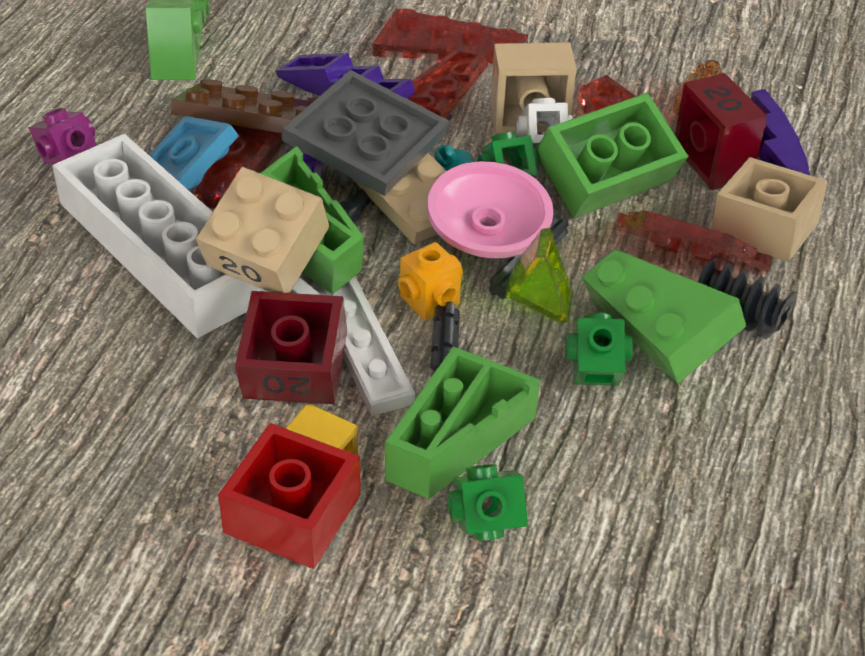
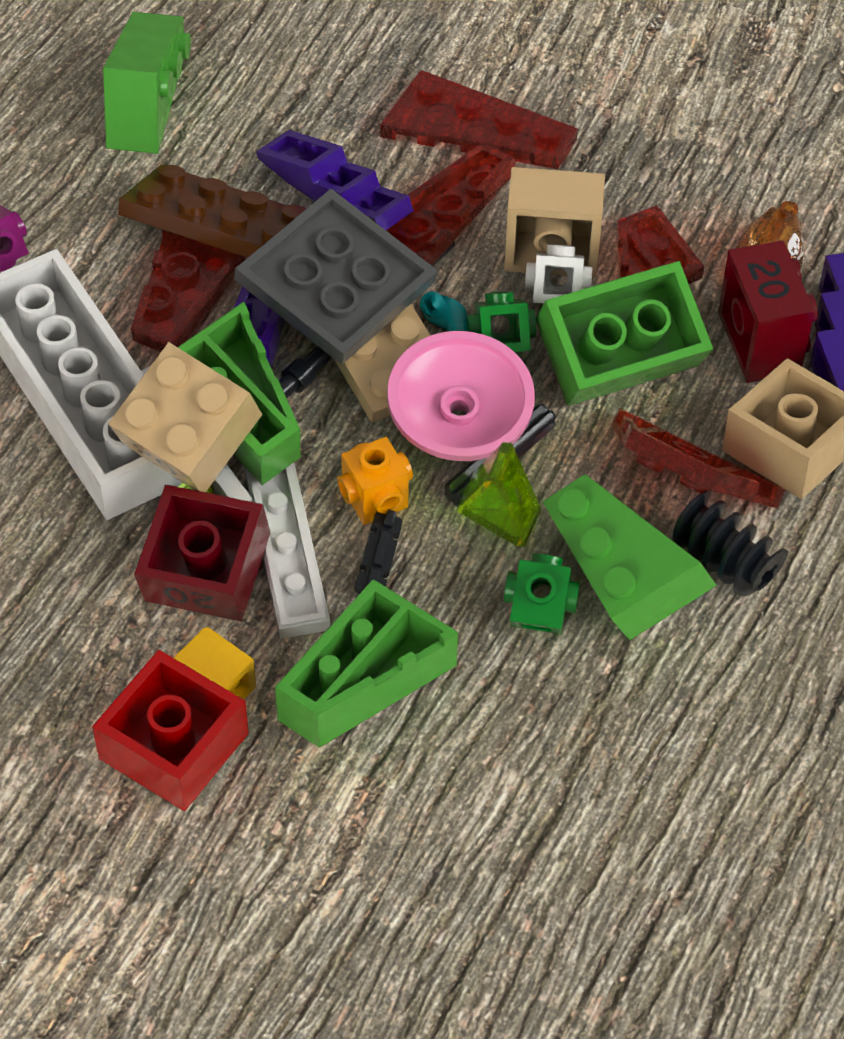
camera: 10 degrees right, 10 degrees up
(193, 149) = (130, 274): dark azure plate -> none
(505, 505) = (374, 764): green brick -> none

